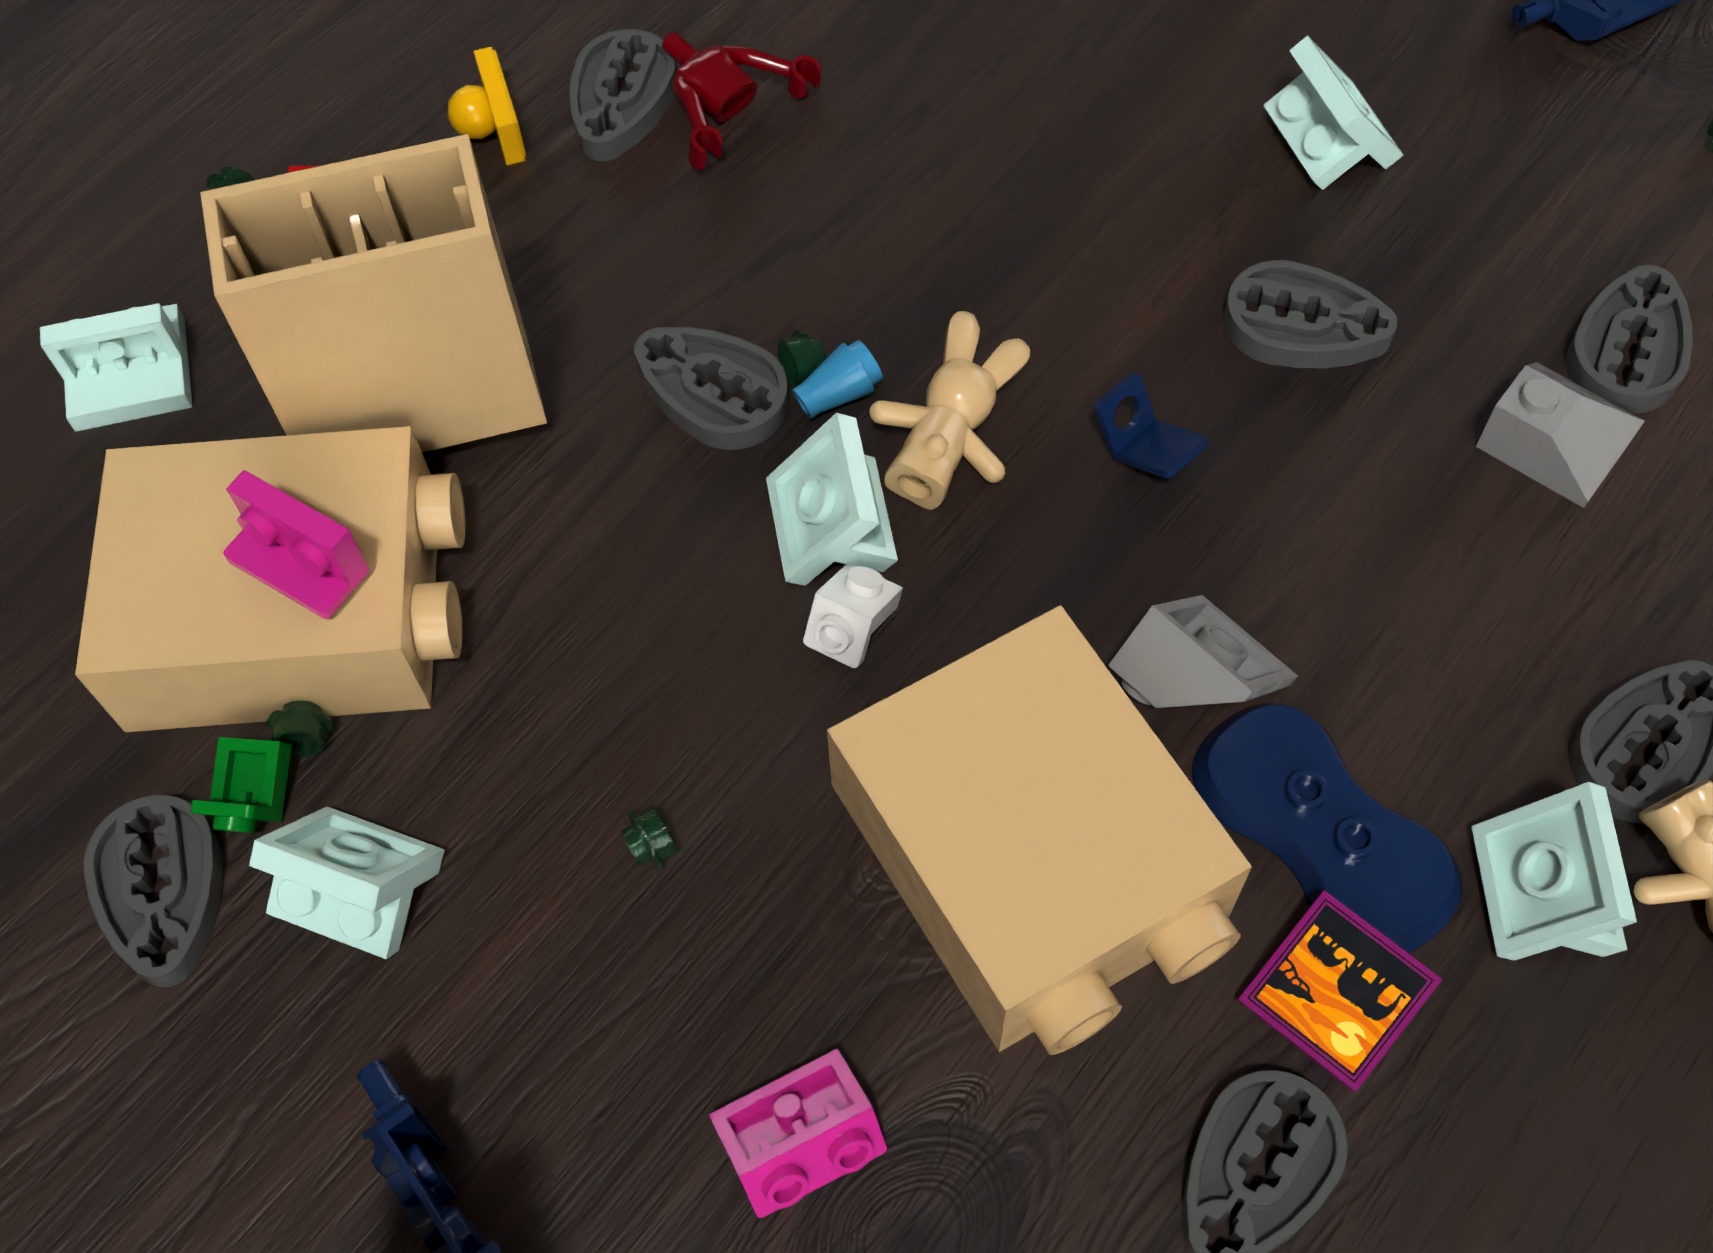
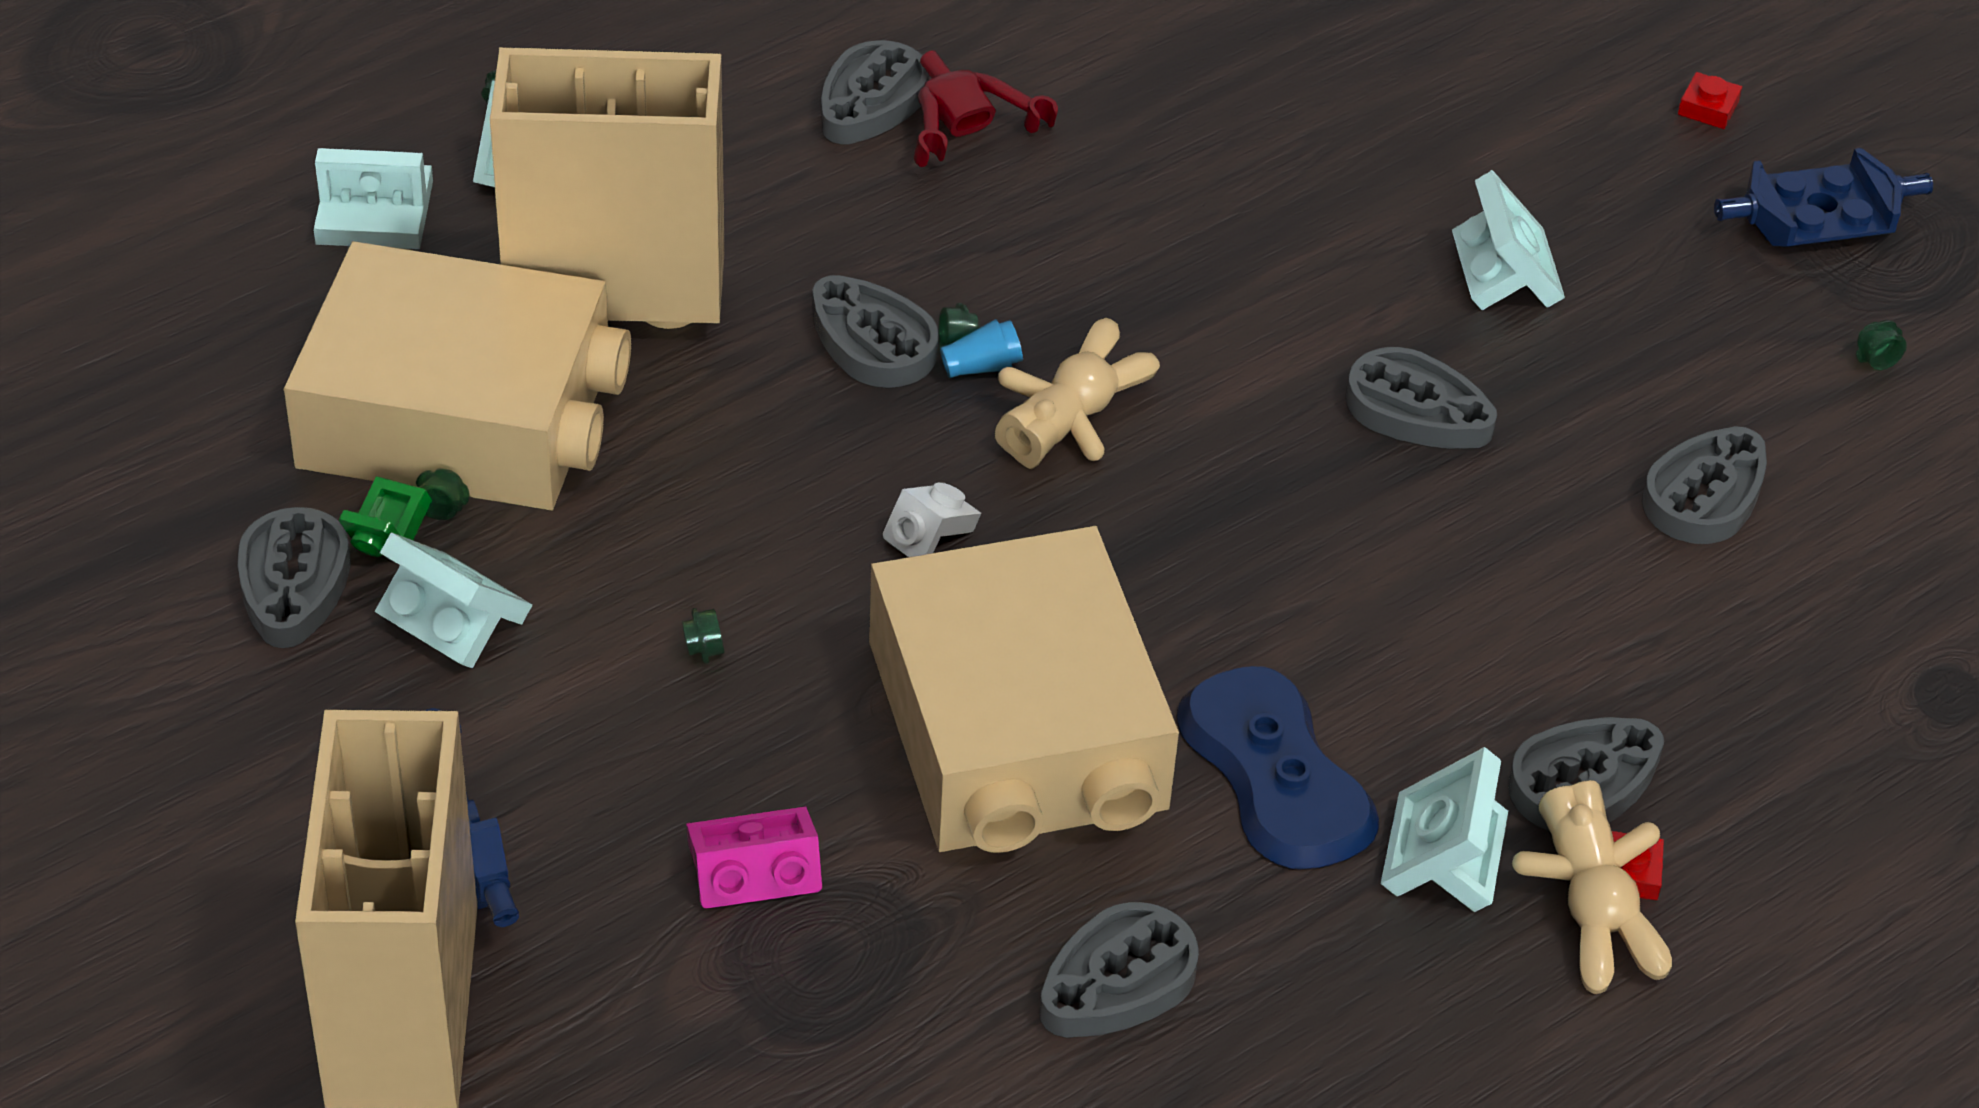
camera: 10 degrees right, 15 degrees down
(293, 547) = (487, 332): dark pink bracket -> none
(483, 109) = (751, 76): yellow tile -> none
(830, 505) = (941, 434): light aqua bracket -> none
(1145, 441) = (1237, 457): dark blue bracket -> none
(1195, 656) = (1208, 615): light grey slope -> none
(1339, 991) = (1234, 869): tile -> none
(1558, 433) = (1604, 532): light grey slope -> none

